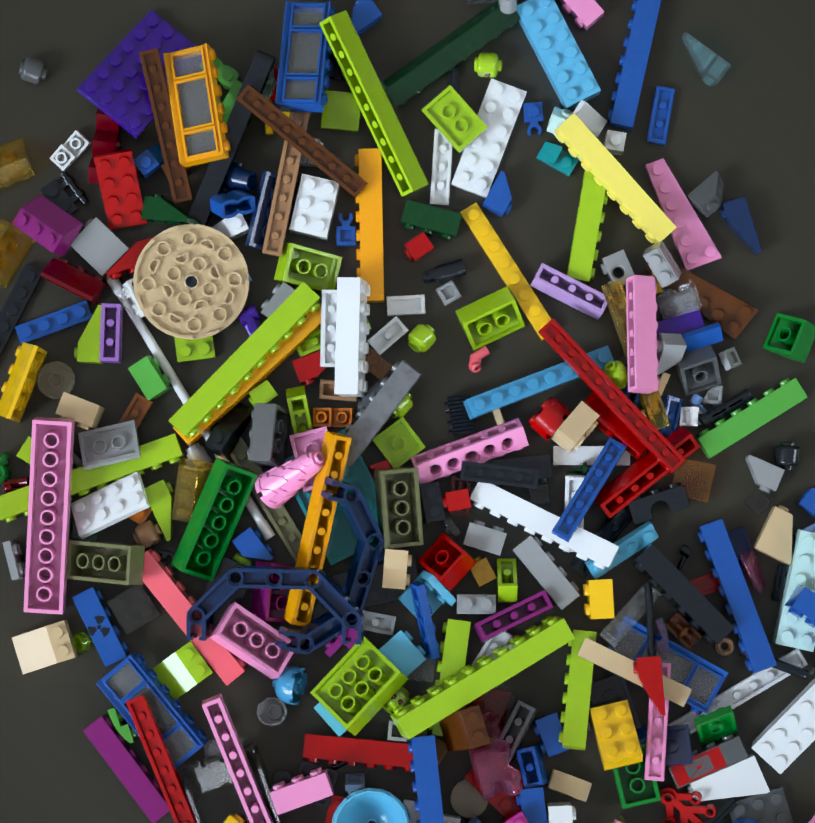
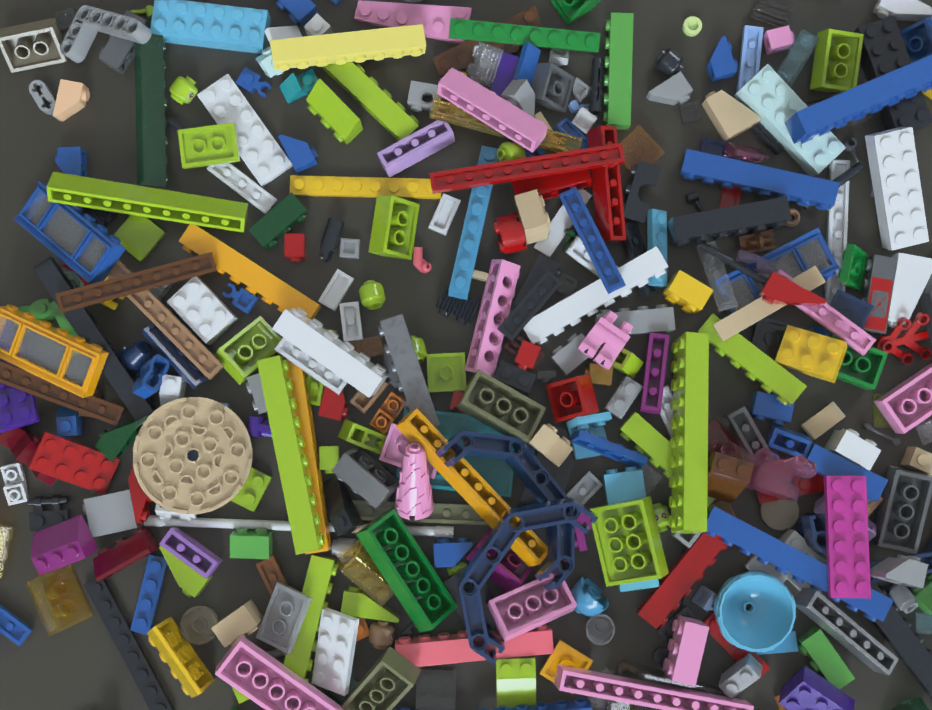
camera: 55 degrees left, 0 degrees up
(232, 697) = (564, 655): none -> light orange plate
(518, 553) = (608, 334): none -> bright pink hips
(530, 352) = (444, 214): none -> white tile
(551, 203) = (333, 113): none -> lime slope
(662, 264) = (445, 55): light grey brick -> none
(726, 317) = (522, 34): none -> green plate

